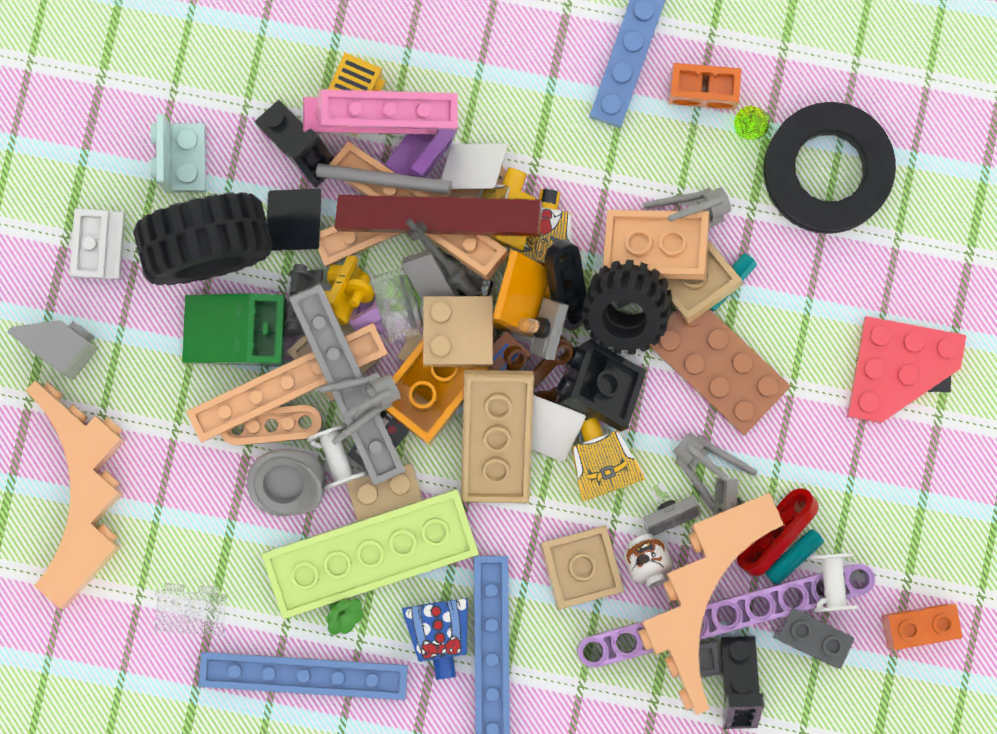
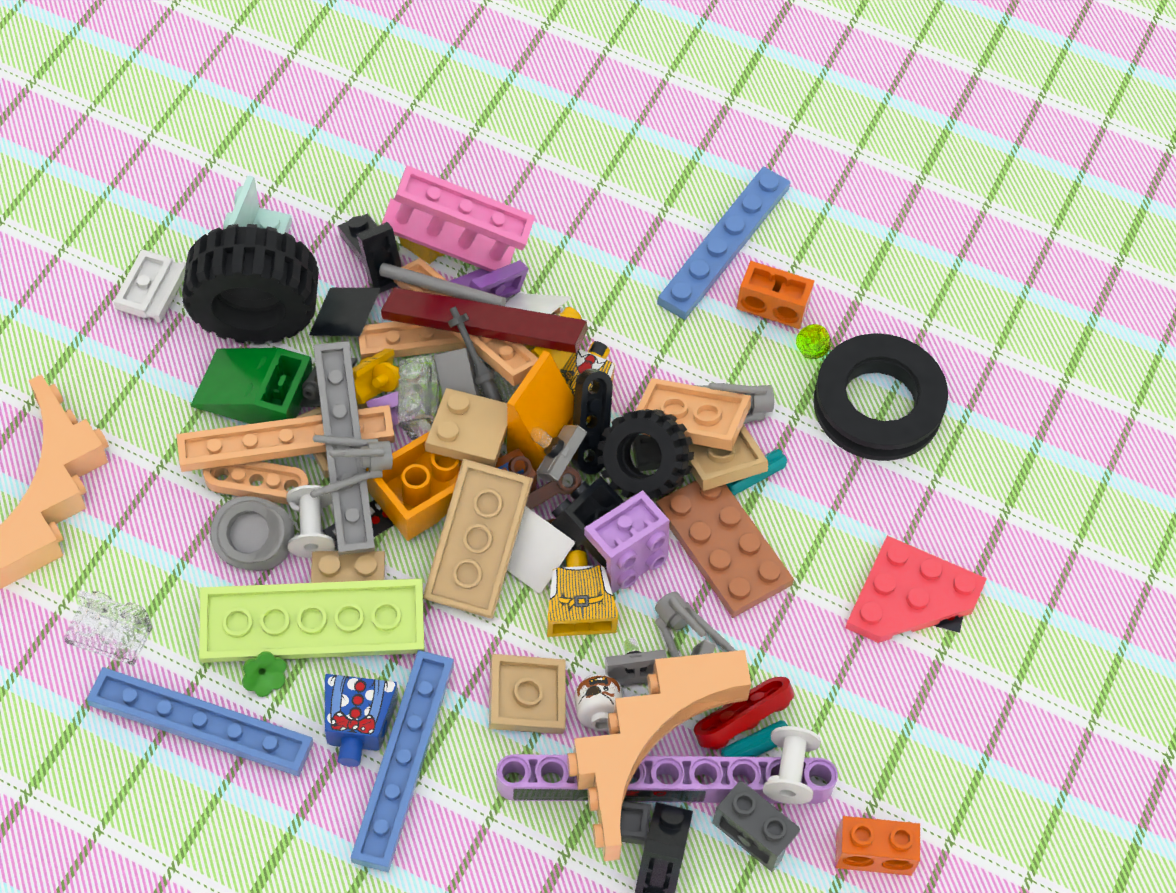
camera: 15 degrees right, 25 degrees down
(58, 344) = (76, 348): light grey slope -> none
(634, 400) = (631, 540): none -> lavender bracket

